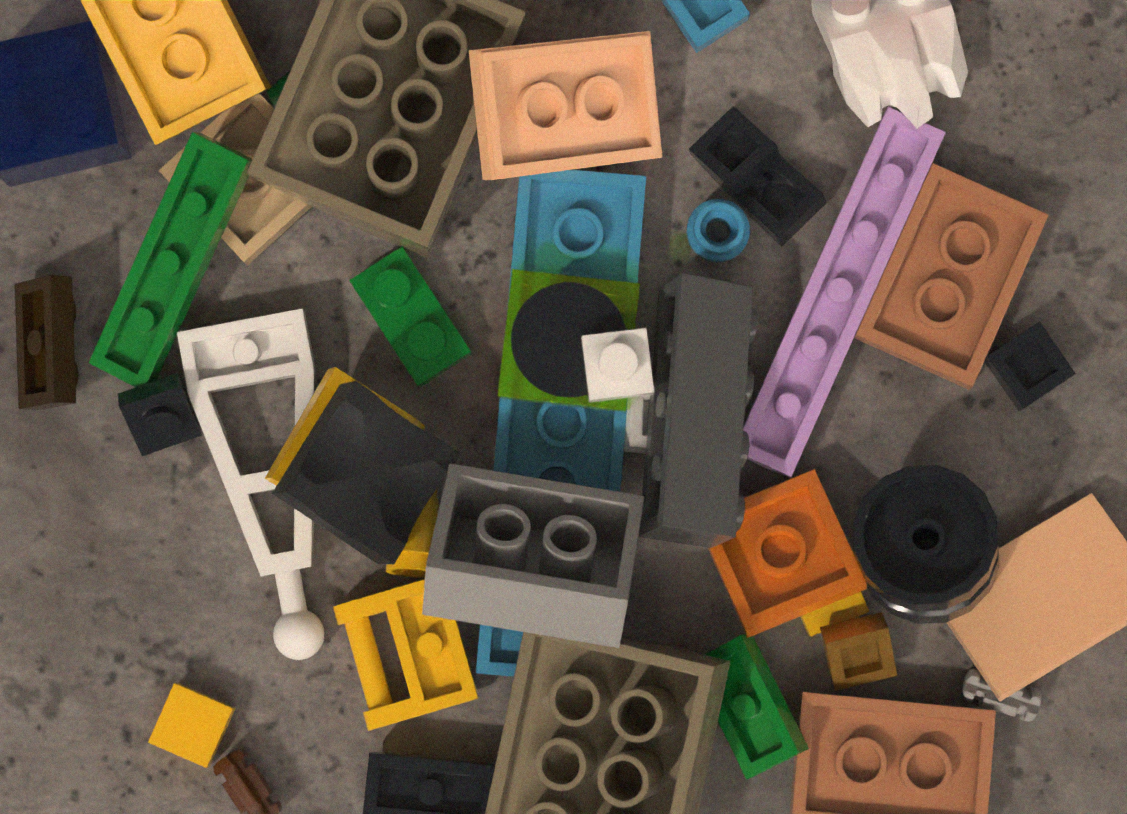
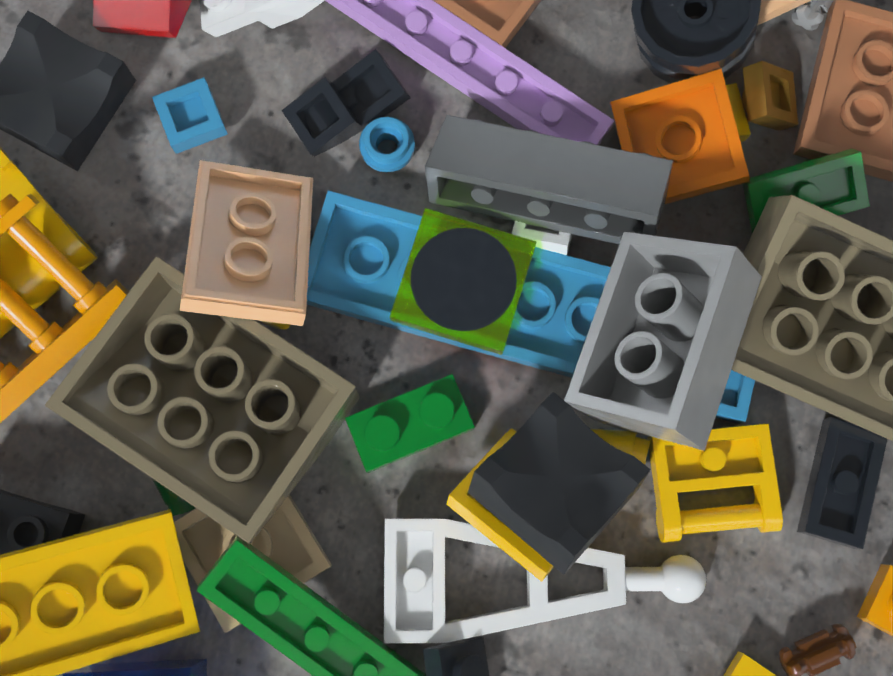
camera: 80 degrees left, 5 degrees down
(617, 365) = (497, 238): white plate -> none

